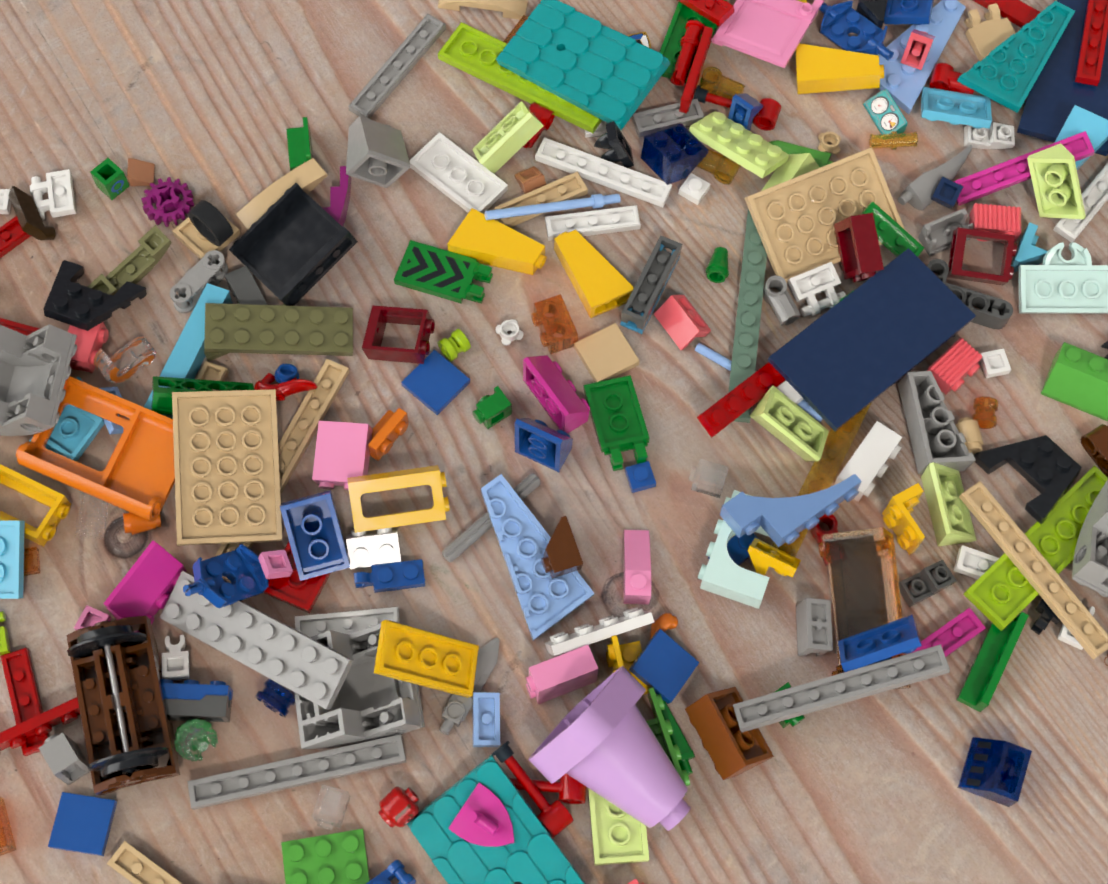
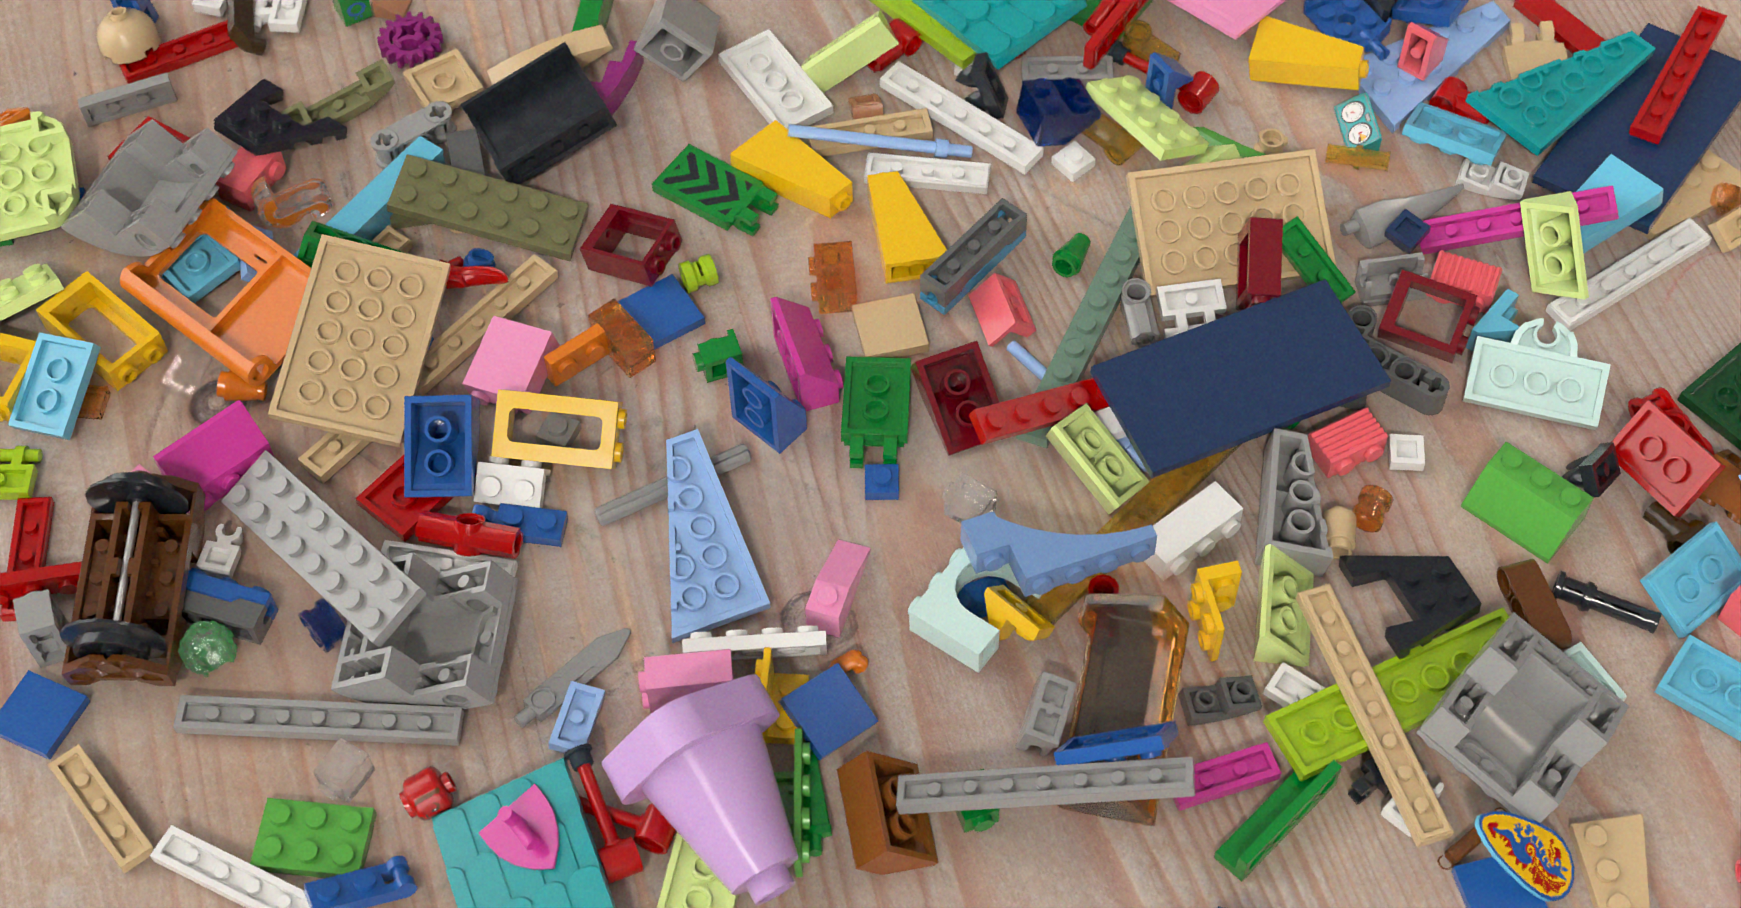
camera: 20 degrees right, 10 degrees down
(210, 223) = (447, 67): black tyre -> none
(239, 566) = (339, 466): blue plate -> none
(275, 564) = (380, 468): bright pink plate -> none
(358, 597) = (469, 534): none -> red piece
(393, 499) = (558, 430): none -> light grey plate
(422, 414) = (627, 341): none -> clear orange brick
(426, 659) = (522, 620): yellow tile -> none
(509, 325) = (771, 268): white plate -> none
(562, 551) = (739, 537): reddish brown slope -> none
(674, 397) = (951, 389): none -> dark red slope

